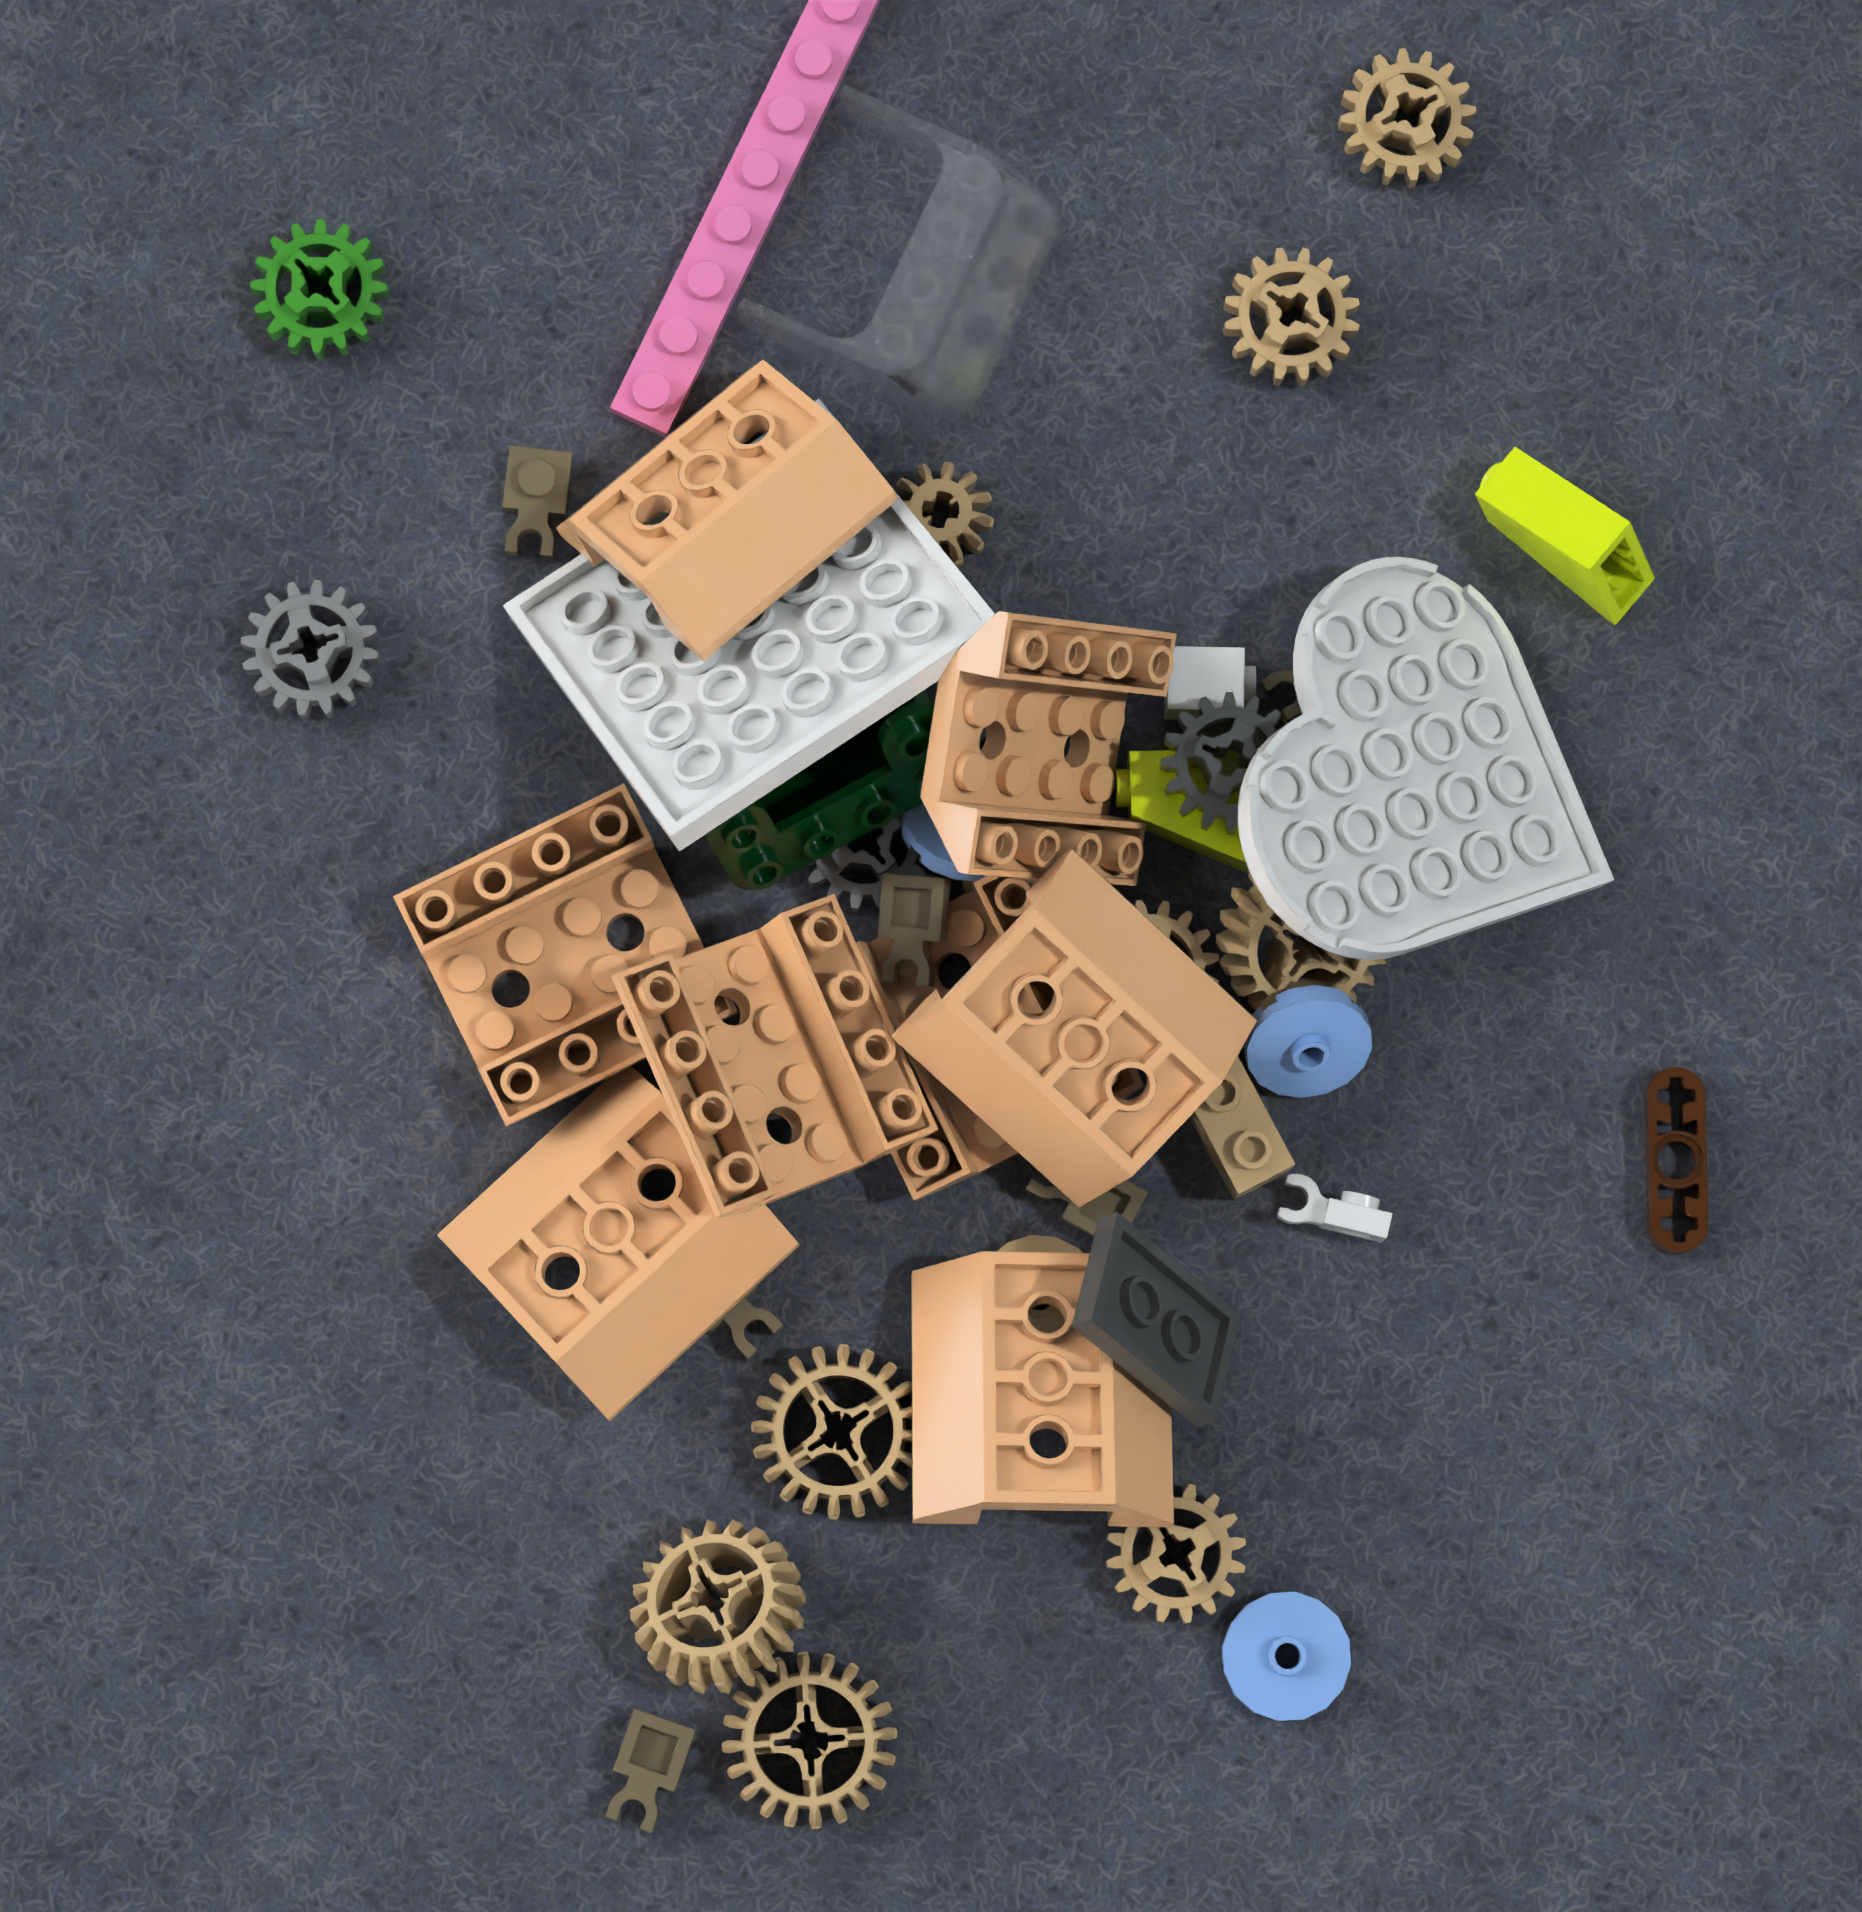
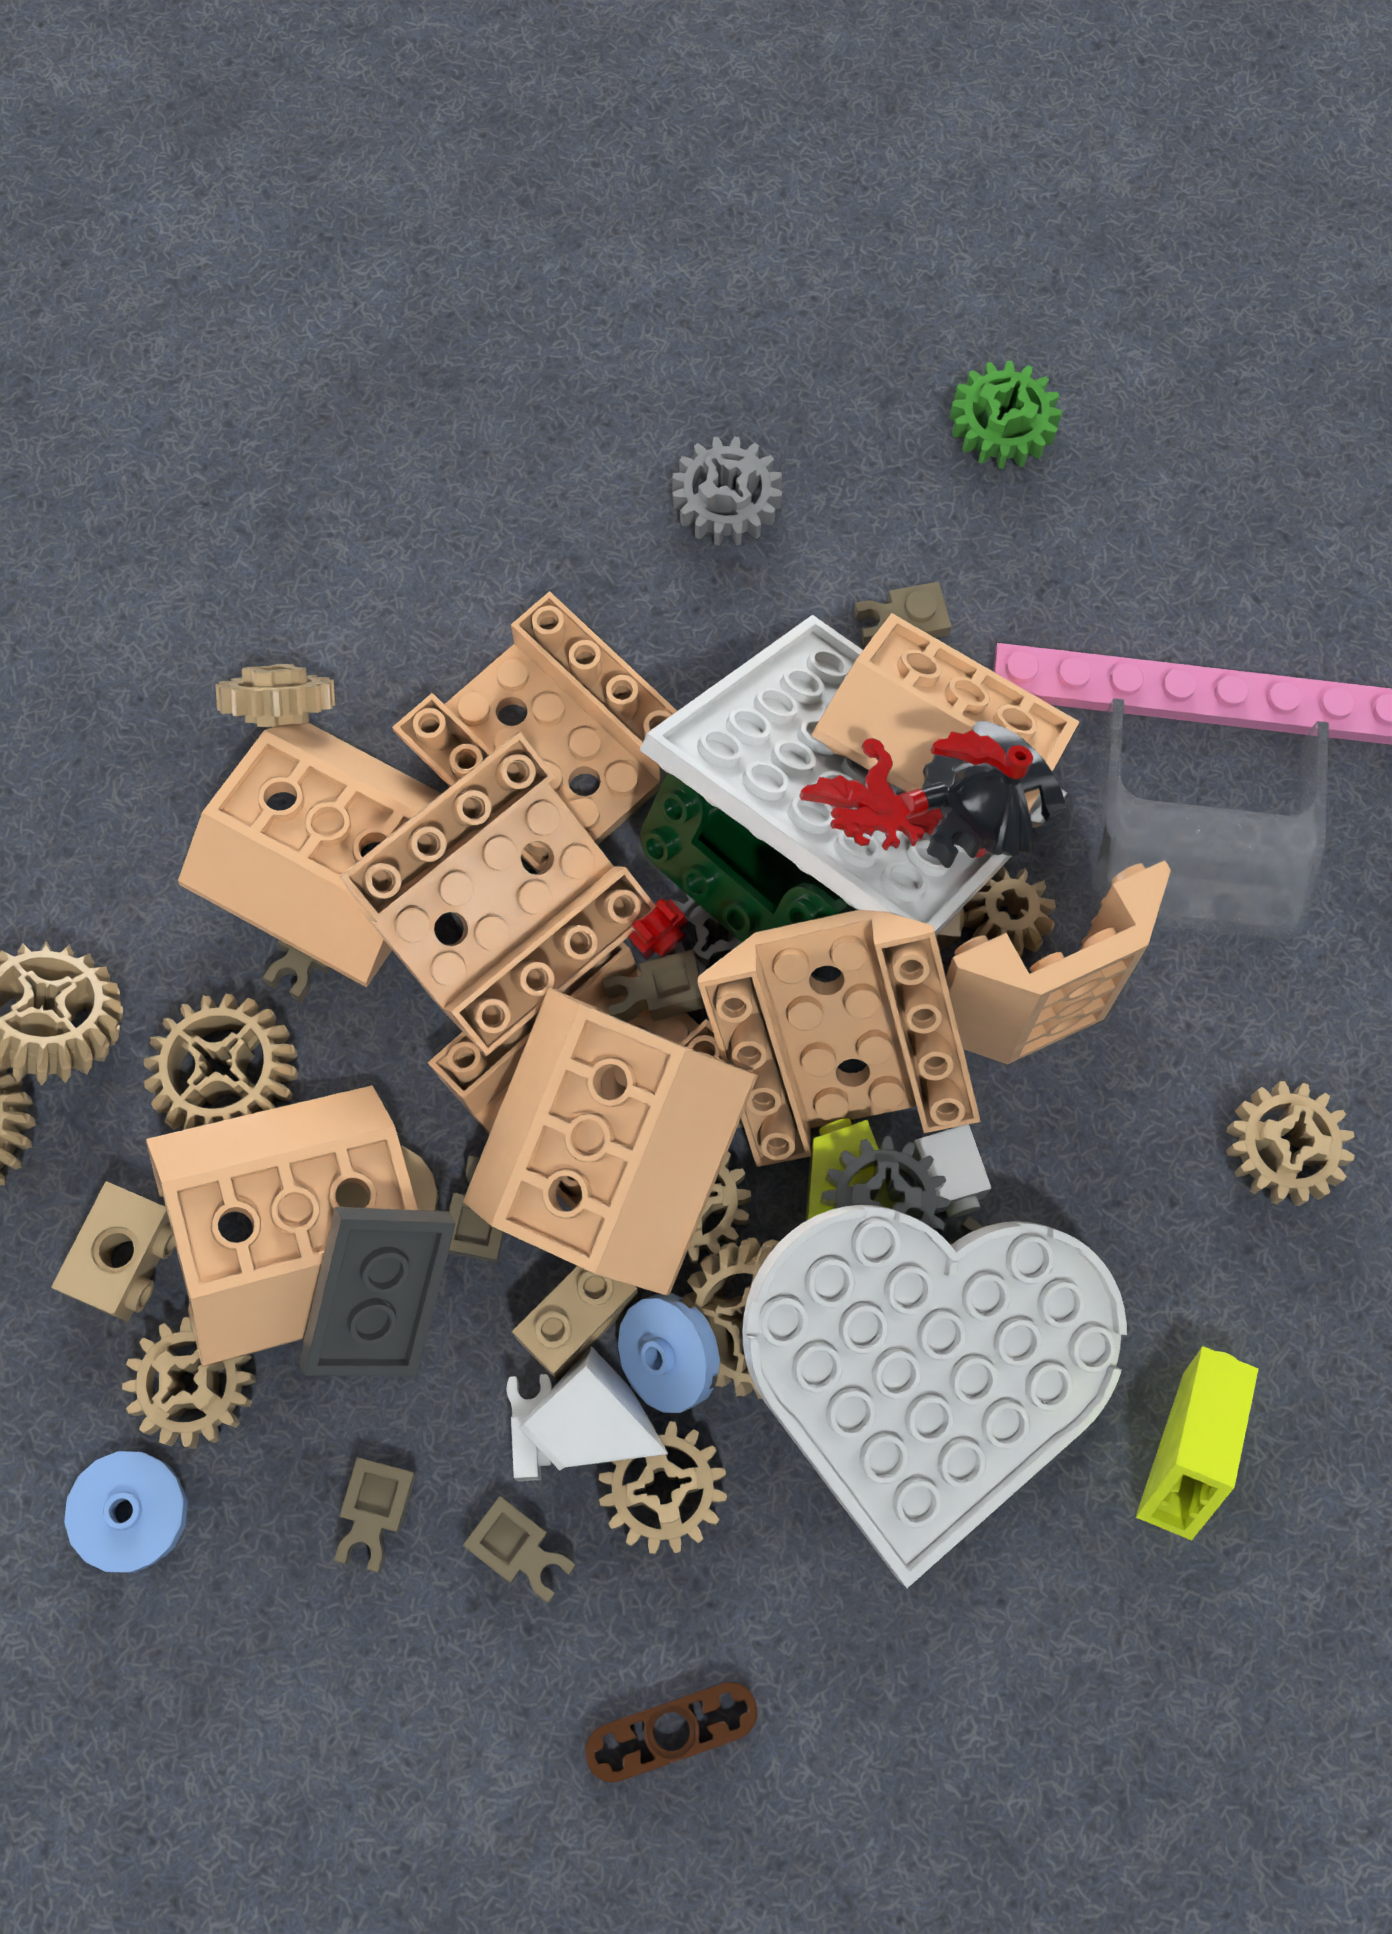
camera: 75 degrees right, 10 degrees down
(415, 1249) = (275, 695): none -> tan gear
(840, 516) = (967, 797): none -> helmet
(855, 899) = (659, 930): none -> red plate
(1025, 1631) = (88, 1268): none -> tan brick
(1044, 423) = (1014, 1013): none -> light nougat slope
(1350, 1140) = (591, 1418): none -> white slope
(1360, 1392) = (375, 1502): none -> dark tan plate
(1409, 1091) = (671, 1526): none -> tan gear
(1446, 1264) = (511, 1544): none -> dark tan plate

